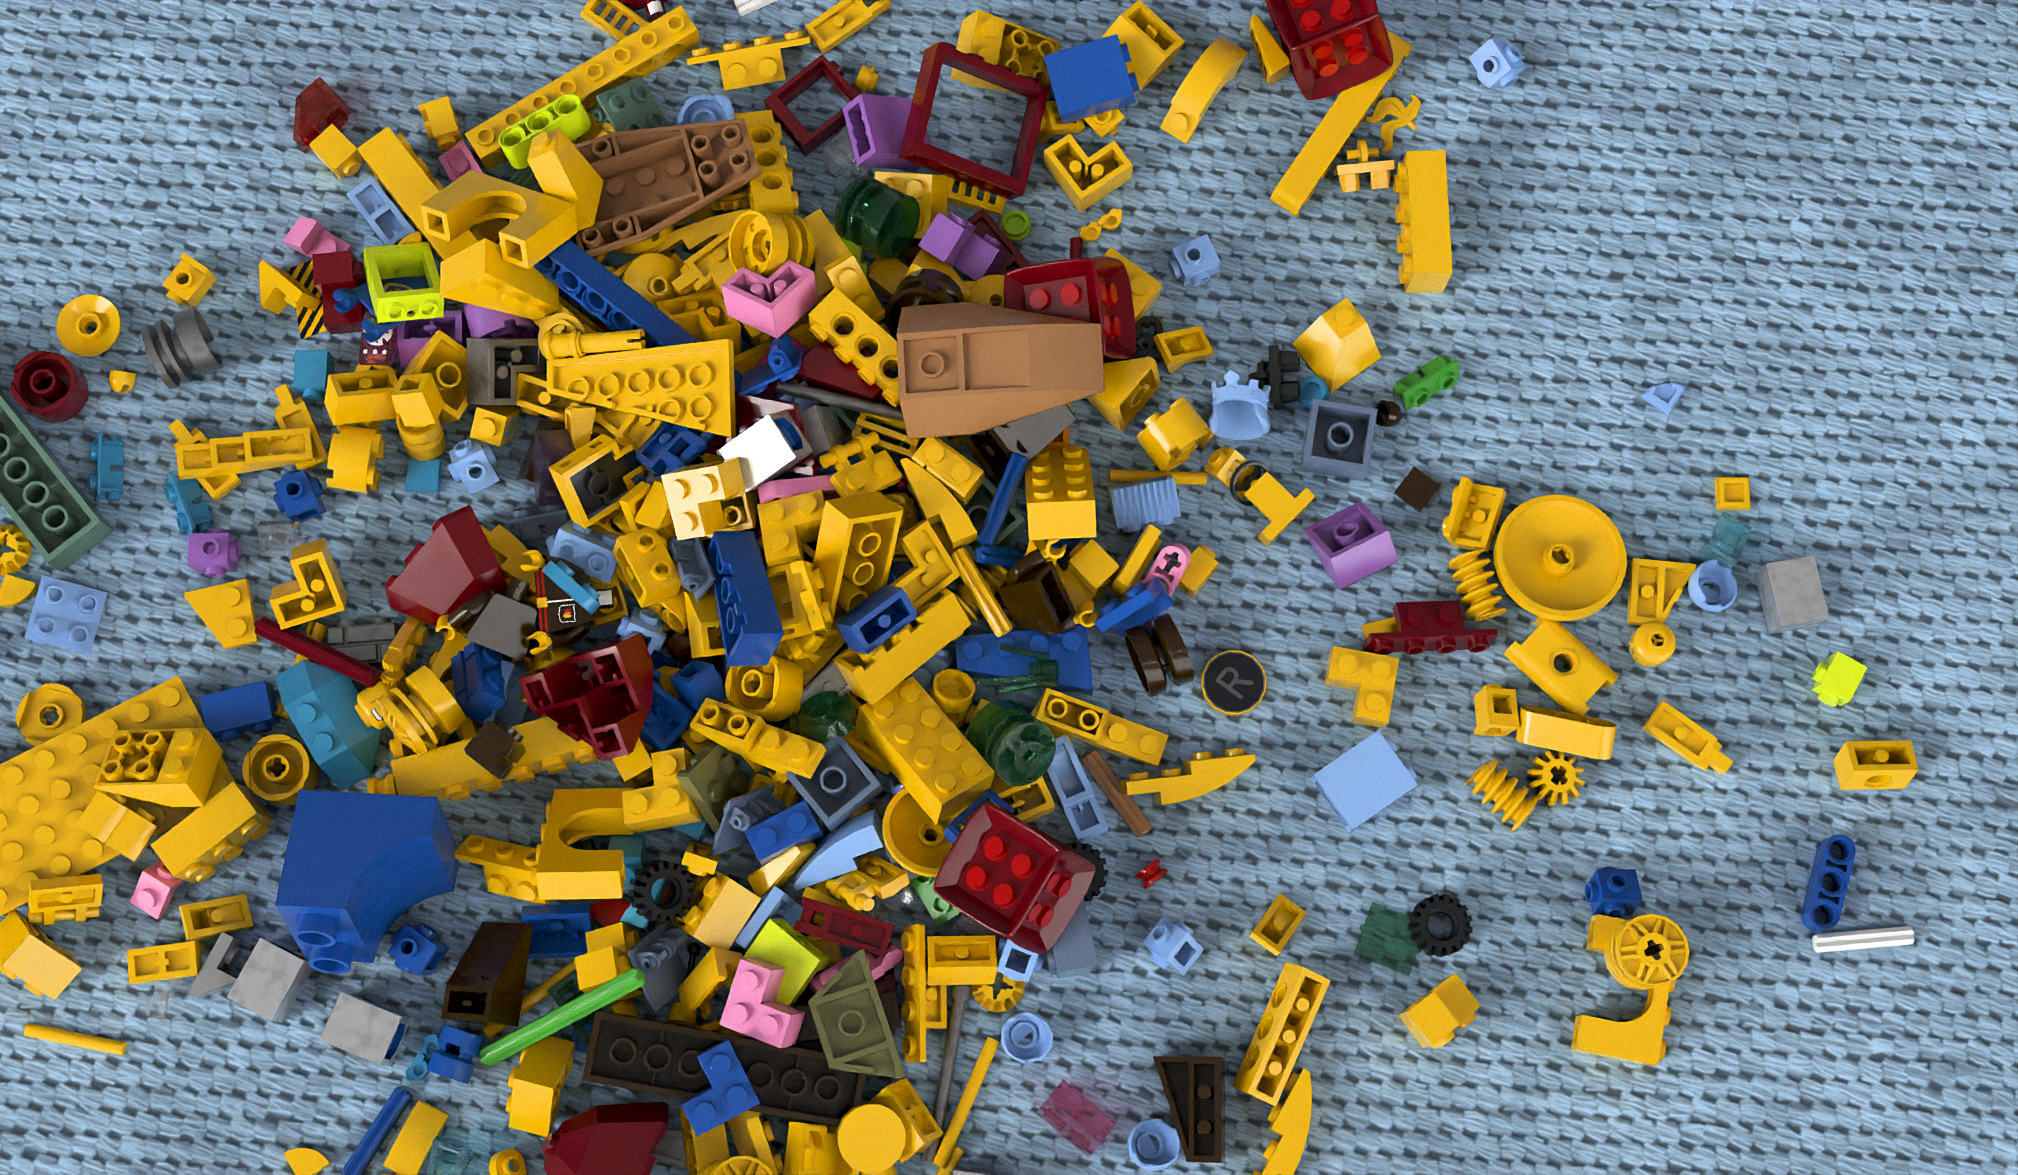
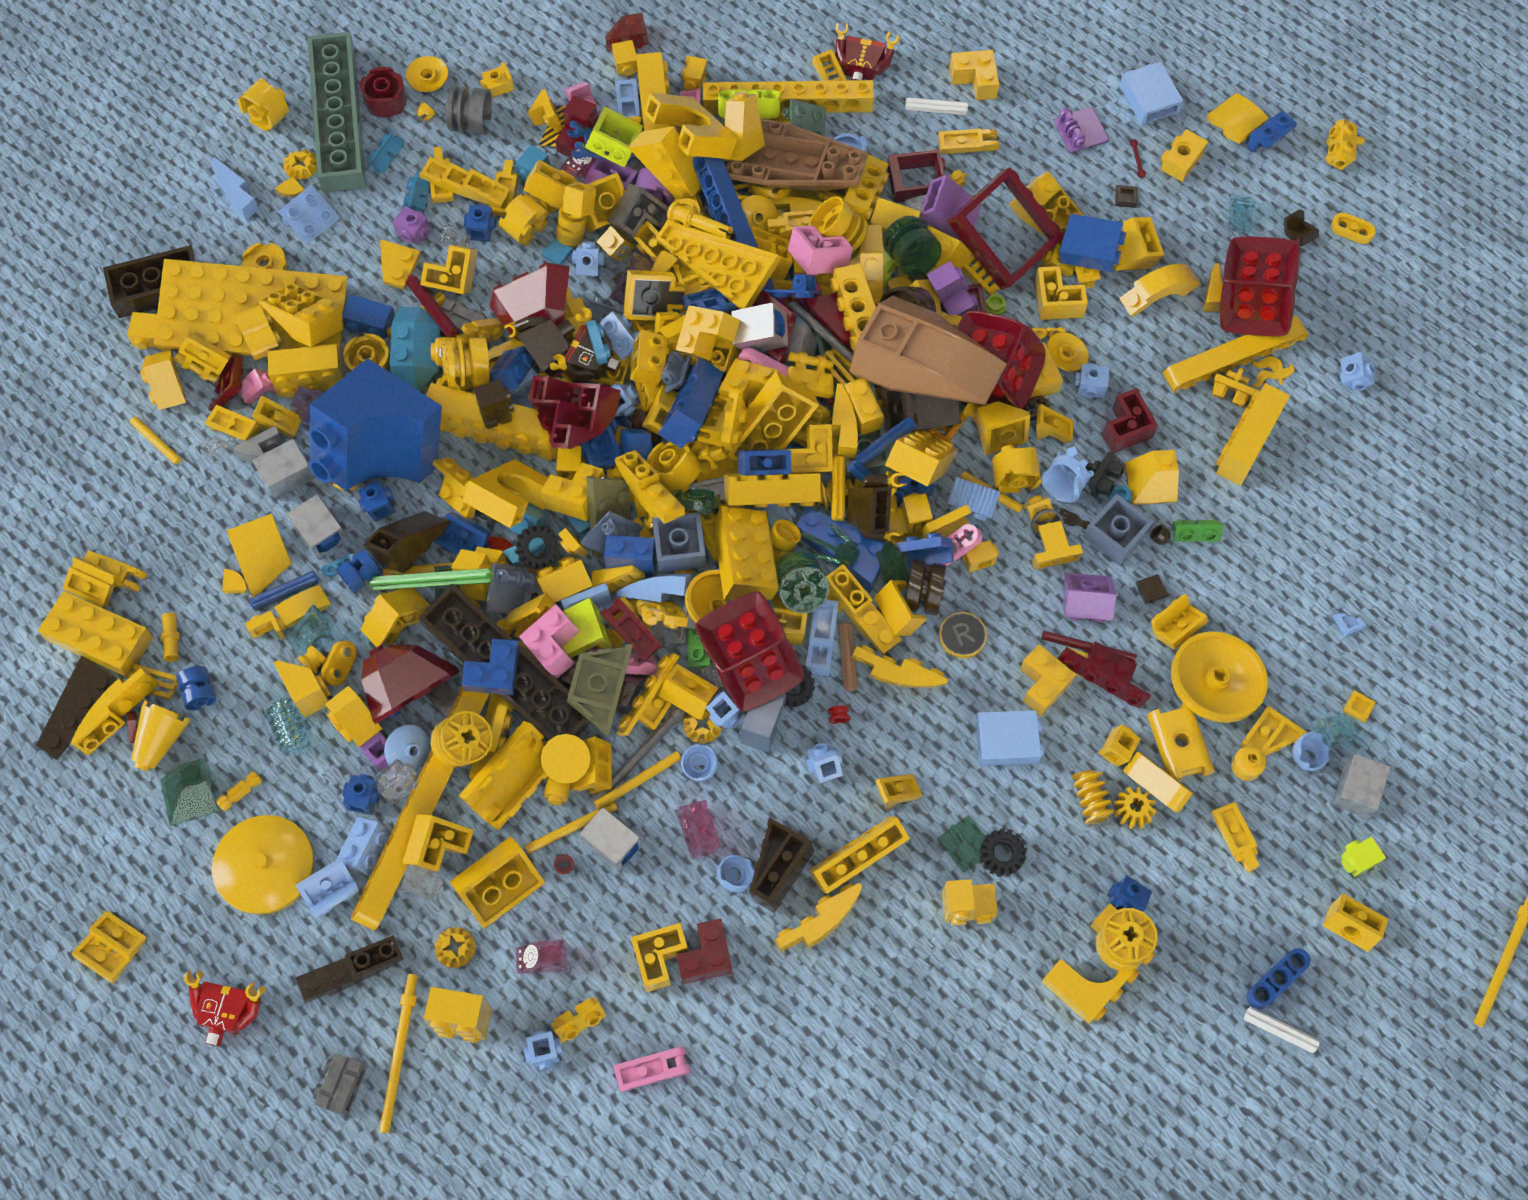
camera: 30 degrees right, 10 degrees down
(120, 908) = (229, 382): none -> dark red wing
(247, 874) = (302, 401): none -> clear purple brick
(315, 1106) = (259, 552): none -> yellow slope
(750, 63) = (895, 136): yellow bracket -> none
(822, 183) = (888, 212): none -> yellow brick
(1104, 650) = (892, 563): none -> clear green hinge
(1140, 703) = (896, 610): none -> yellow panel
(1143, 228) = (1071, 346): none -> yellow dish
(1273, 455) = (1073, 519): none -> dark brown piece
(1277, 288) = (1133, 422): none -> dark red brick
(1385, 607) = (1080, 644): none -> dark red piece
(1476, 586) = (1152, 663): yellow piece -> none

